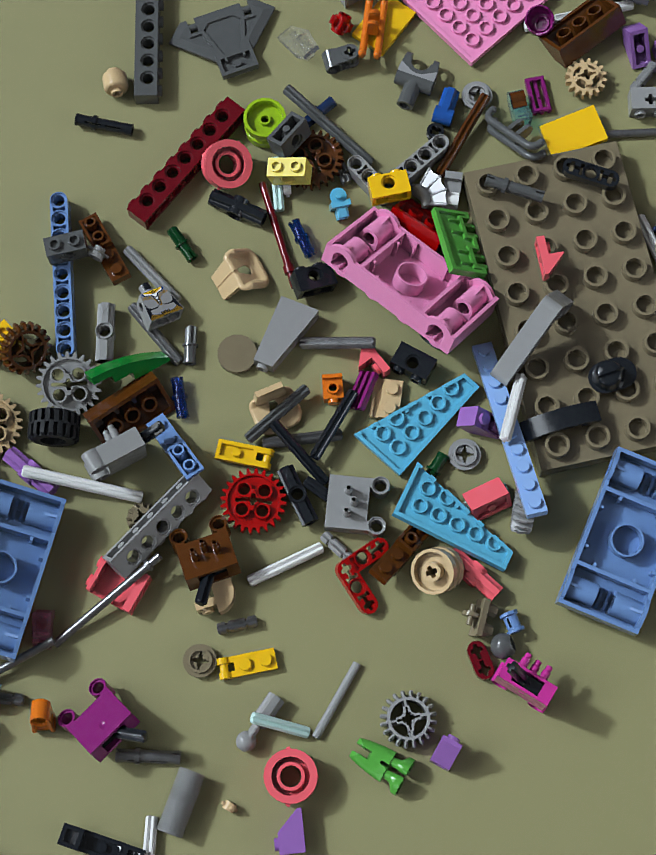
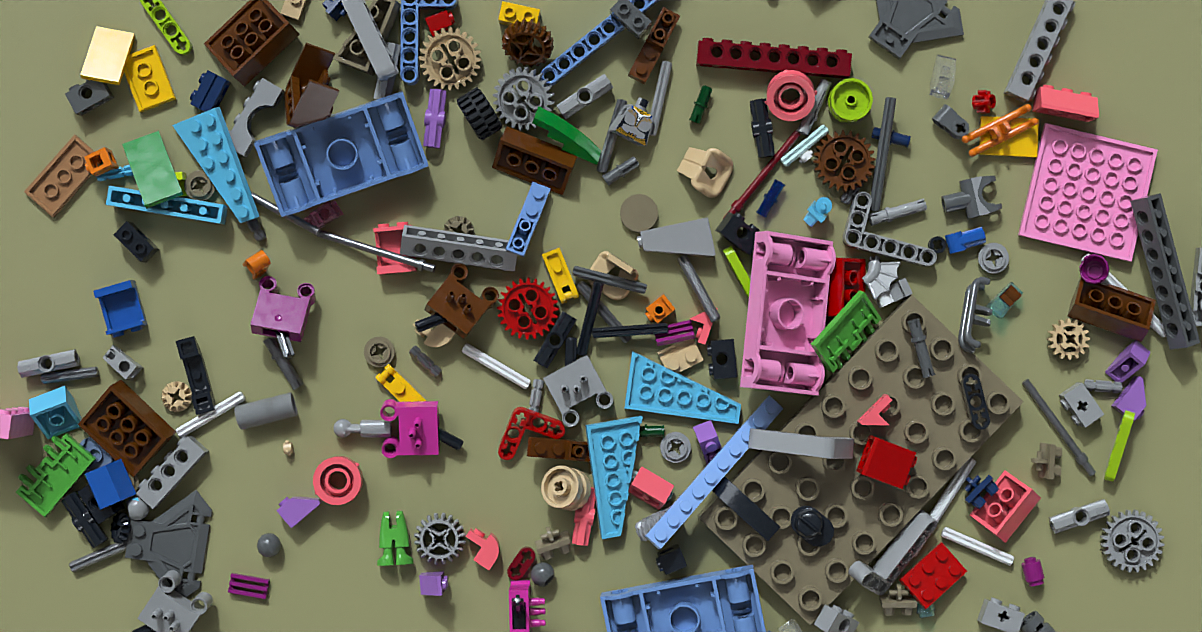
camera: 55 degrees right, 15 degrees up
(82, 484) = (451, 166): white axle -> none
(97, 253) = (643, 45): light grey plate -> none
(119, 450) = (495, 179): light grey piece -> none
(179, 397) = (572, 192): clear blue pin -> none
(258, 167) = (807, 121): none -> light grey pin
(280, 725) = (370, 446): light aqua axle -> none
(289, 135) = (848, 130): dark grey brick -> none
(289, 171) = (818, 151): light yellow brick -> none
(294, 670) = (417, 429): none -> dark pink piece
(336, 700) = (419, 474): light grey bar -> none
(350, 302) = (738, 269): none -> lime beam
(381, 195) = (846, 238): yellow brick -> none
(383, 151) = (889, 214): none -> light grey pin
(448, 679) = (489, 547): none -> coral brick
(463, 134) = (944, 270): reddish brown axle -> none
(512, 622) = (566, 569): medium blue bush -> none
(513, 407) = (731, 466): white axle -> none
(540, 109) = (1015, 319): magenta tile -> none
(564, 519) = (670, 559): none -> black brick
(574, 131) = (1011, 360): yellow tile -> none
(594, 275) = (886, 462): none -> red slope

